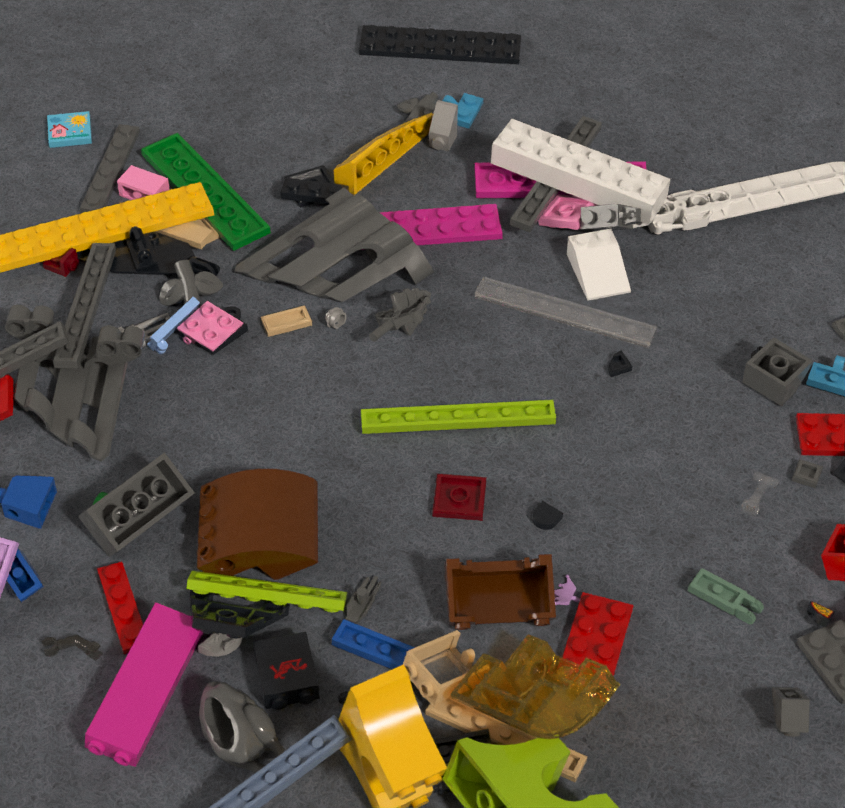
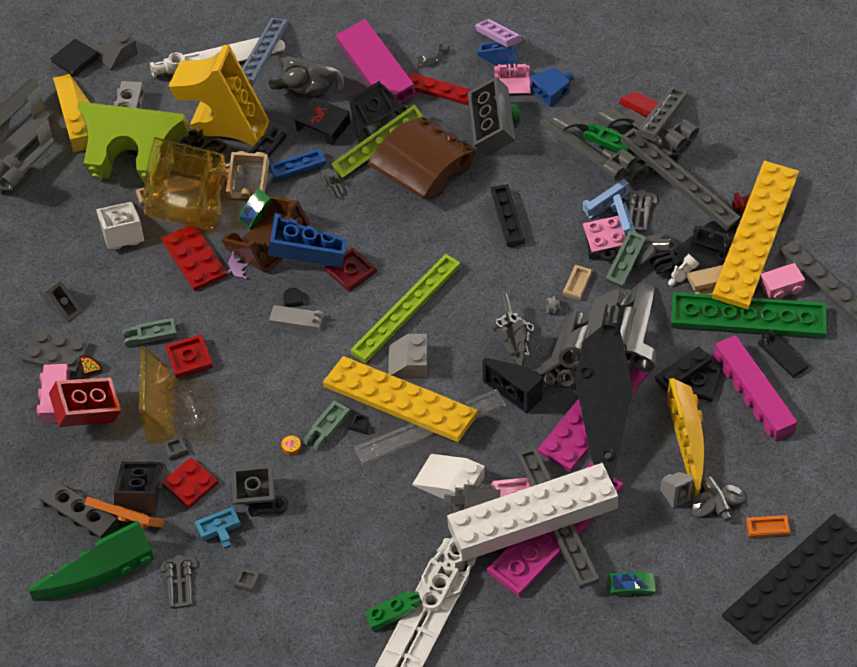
camera: 135 degrees right, 5 degrees up
(47, 545) = (514, 78): none -> bright pink hinge
(76, 390) = (605, 137): none -> green hinge
(166, 354) = (600, 203): none -> light blue hinge
(187, 245) = (680, 273): none -> white piece
(226, 151) = (782, 354): none -> black hinge
(227, 292) = (626, 258): none -> sand green plate
(256, 419) = (507, 215): none -> black plate
(284, 145) = (755, 388): none -> dark pink brick
(409, 192) = (604, 388): none -> black wing
(411, 78) = (768, 526): none -> orange tile
(459, 271) = (514, 382): none -> black slope
(467, 108) = (696, 532): dark azure plate -> none
(480, 623) = (253, 209): none -> slope
(490, 524) = (305, 243): none -> blue wedge
(512, 372) = (408, 357): none -> light grey slope
(557, 115) = (631, 582): none -> slope
(565, 348) = (400, 398): none -> yellow plate
(565, 494) = (296, 317): none -> light grey hinge
(637, 745) = (120, 225): none -> white slope
(649, 381) = (327, 424): none -> sand green hinge
(698, 393) = (291, 445): none -> tile
(711, 540) = (188, 356): none -> red plate
(754, 217) = (393, 610): none -> green hinge
(793, 508) = (156, 398): none -> clear yellow slope

